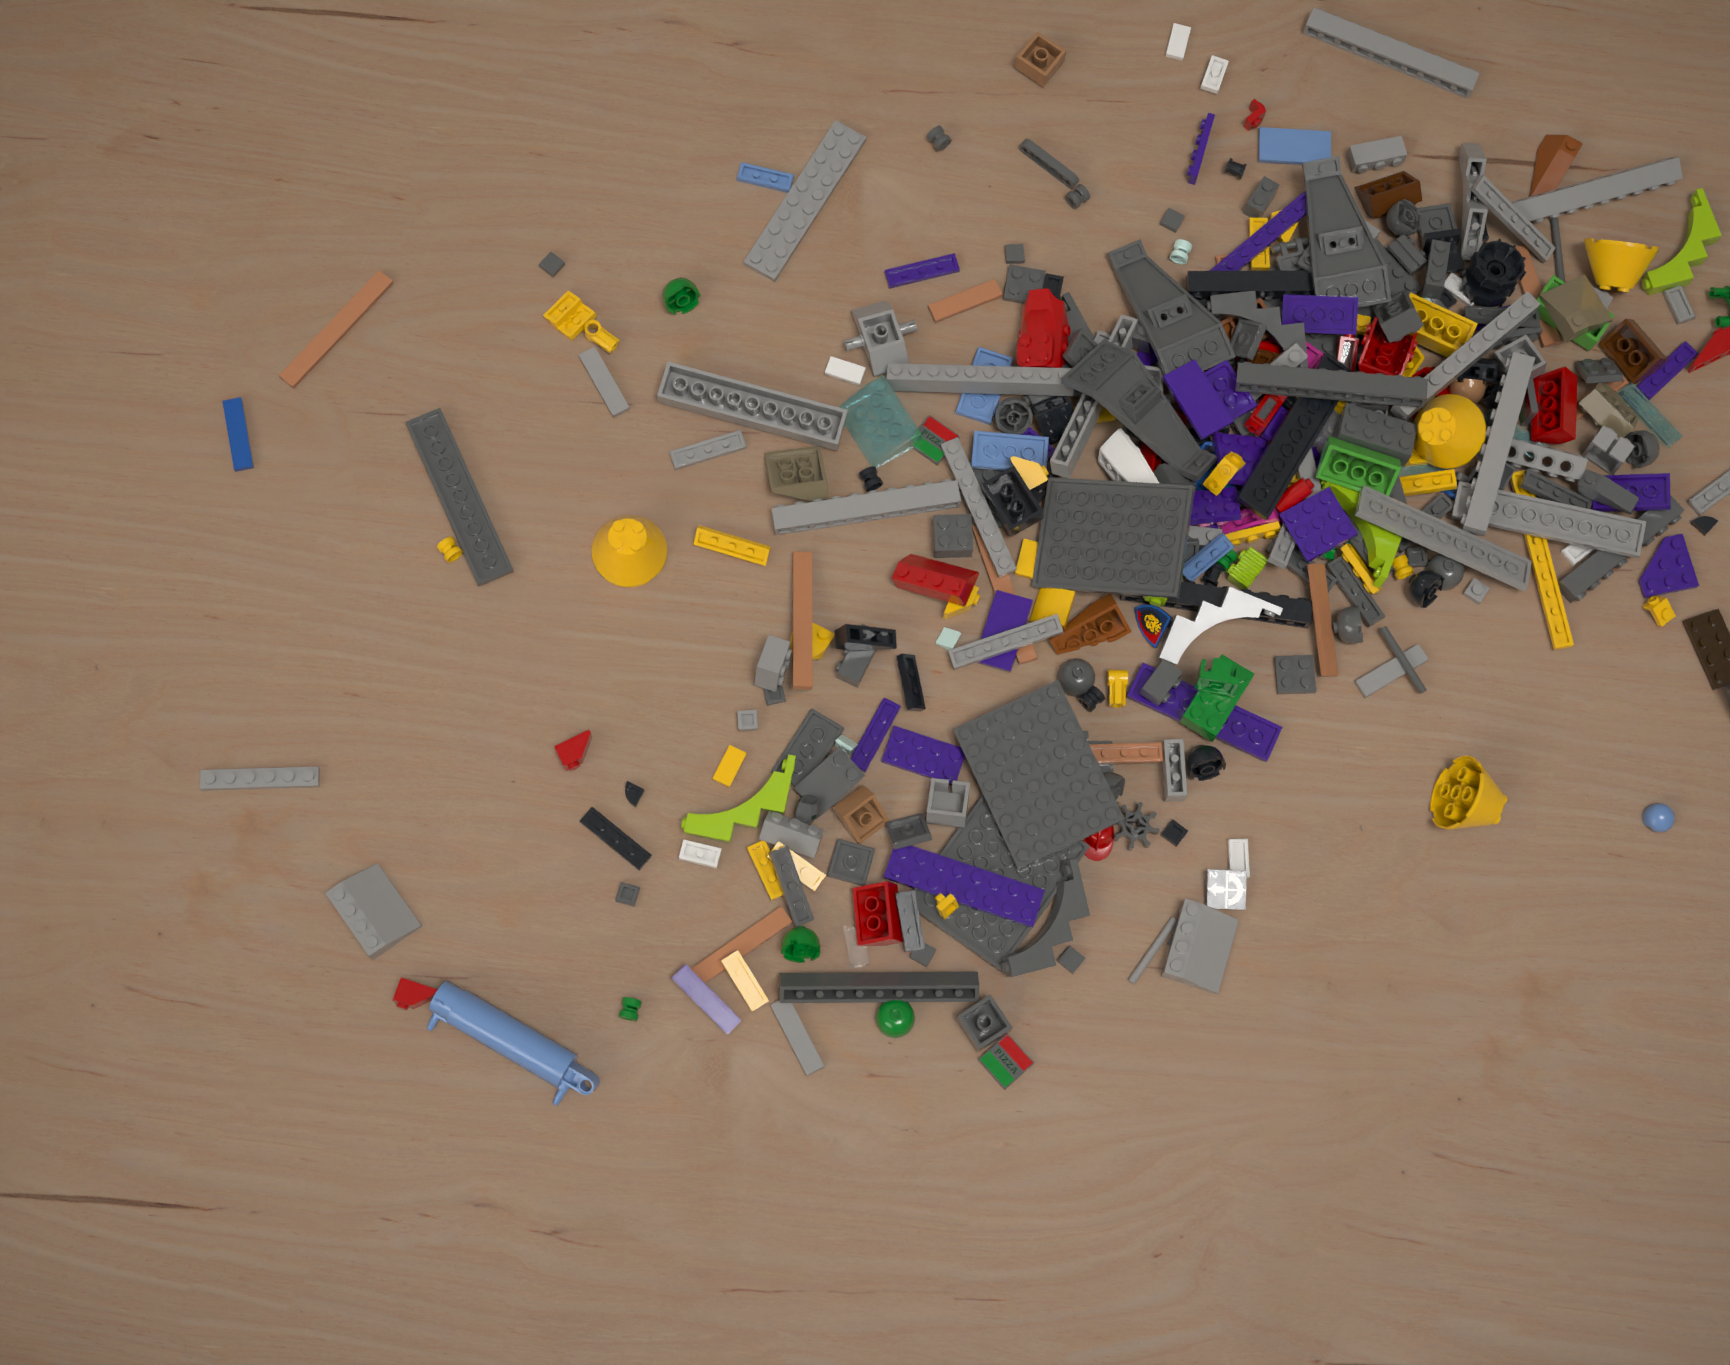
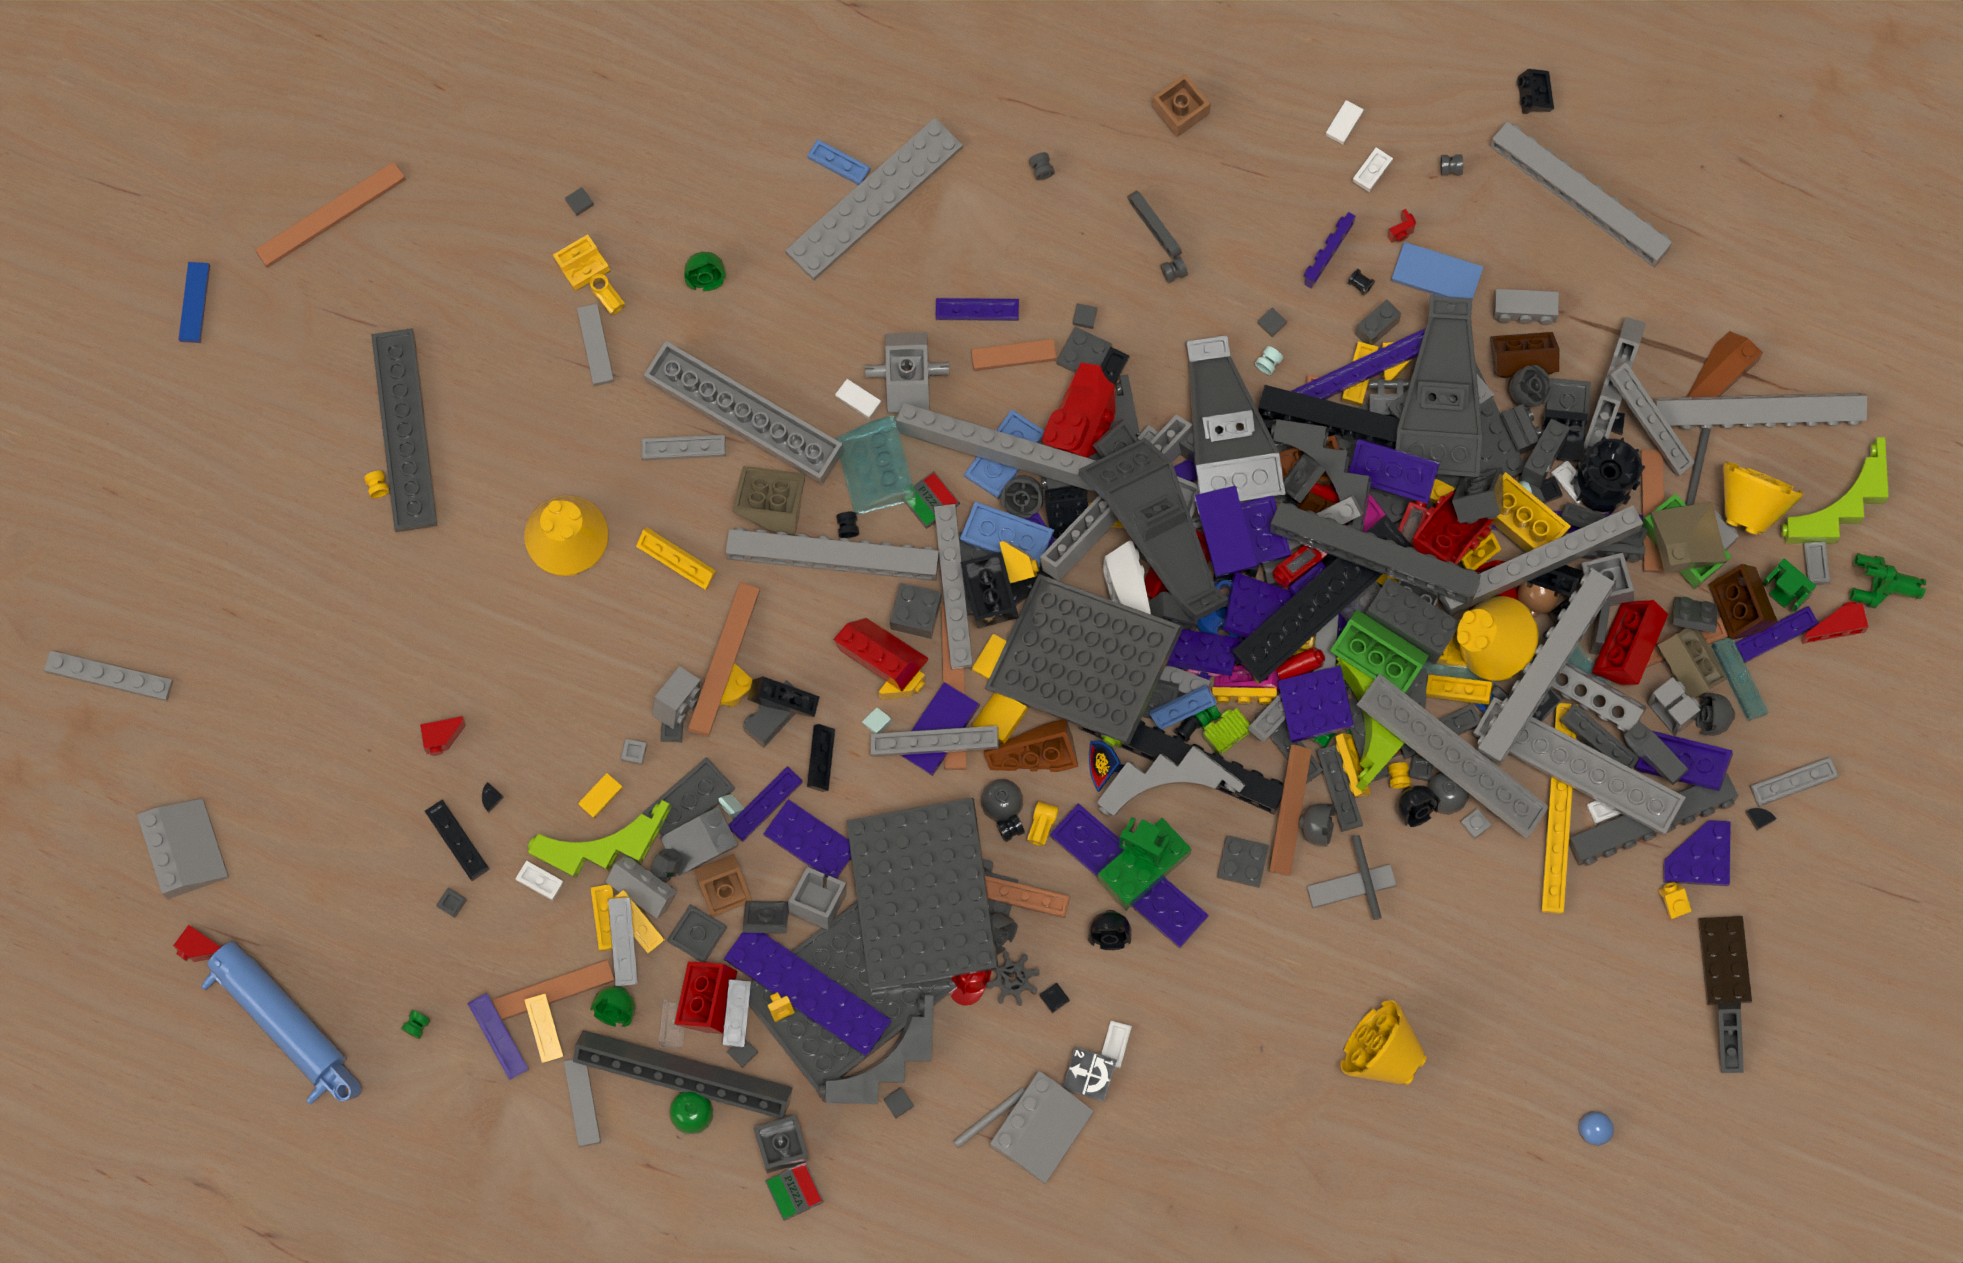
camera: 25 degrees right, 0 degrees up
(1161, 682) = (1089, 831): dark grey brick -> none
(1174, 770) = (1073, 929): light grey brick -> none
(1224, 472) = (1227, 618): yellow bracket -> none
(1278, 54) = (1451, 164): none -> dark grey wheel
(1667, 325) = (1790, 585): none -> green panel

